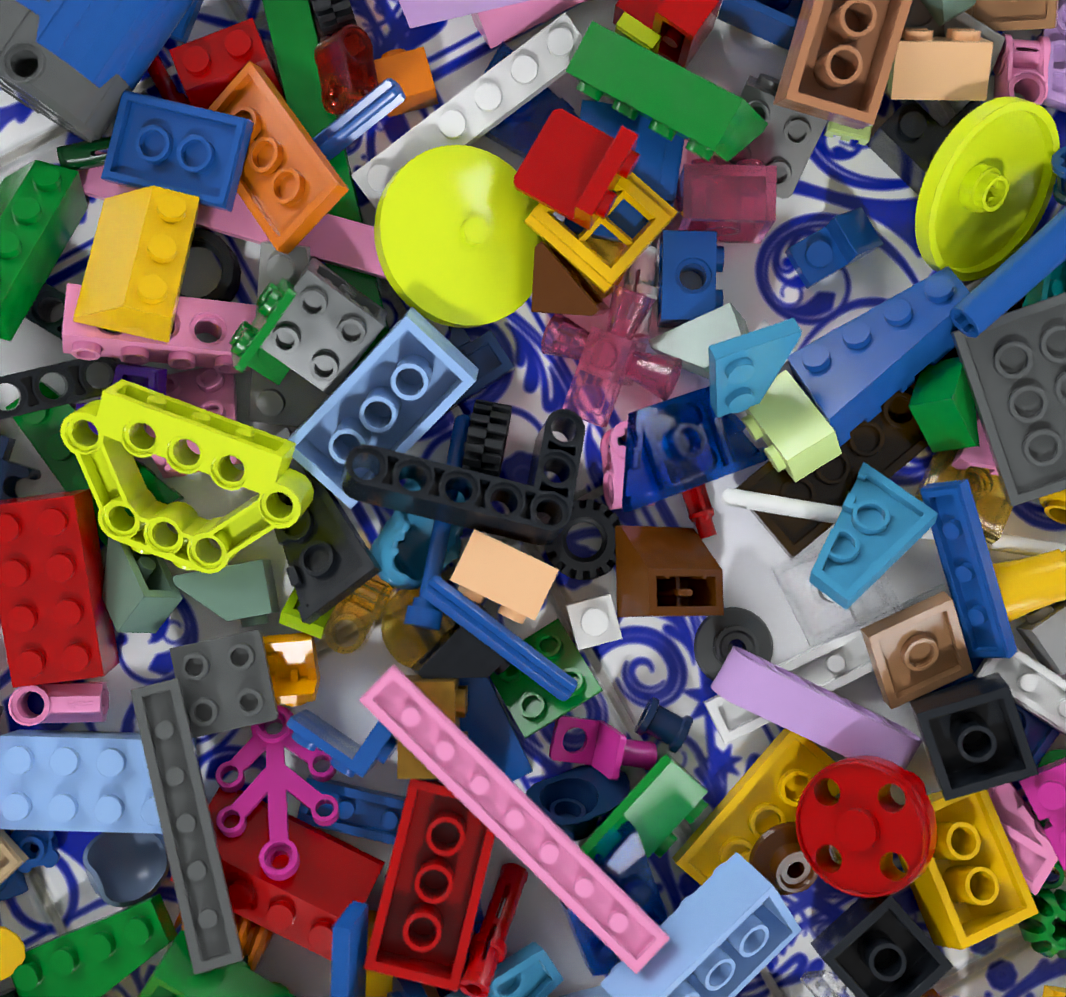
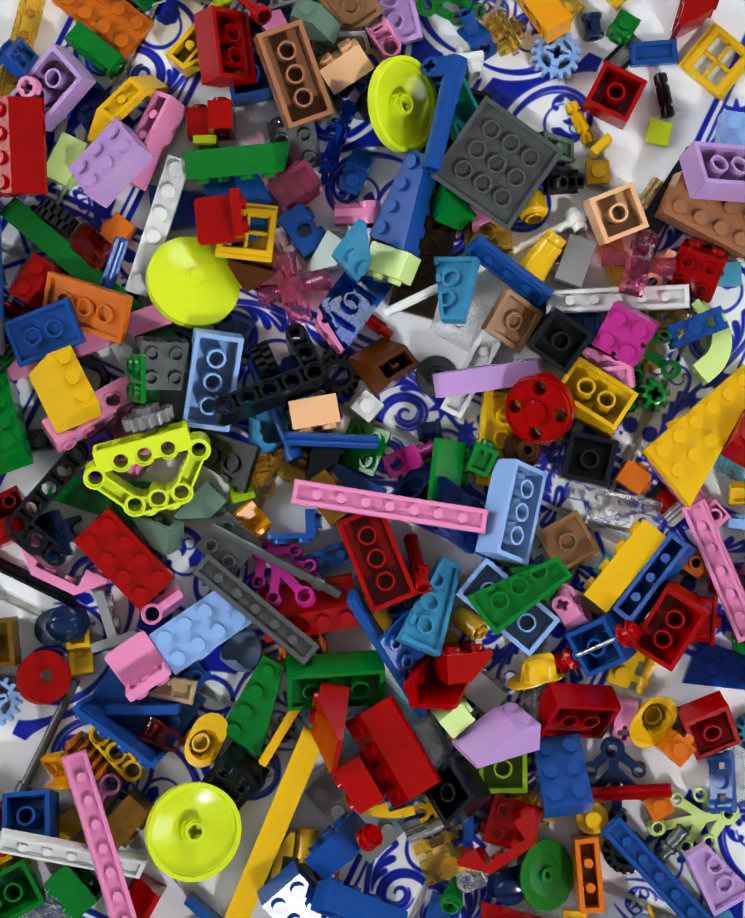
camera: 35 degrees left, 0 degrees up
(238, 396) = (148, 417): none -> light grey gear
(317, 846) = (318, 583): none -> dark grey bar
(717, 835) = (482, 457): none -> green bracket
(779, 302) = (348, 213): none -> bright pink piece
(862, 164) = (341, 129): none -> clear blue wing

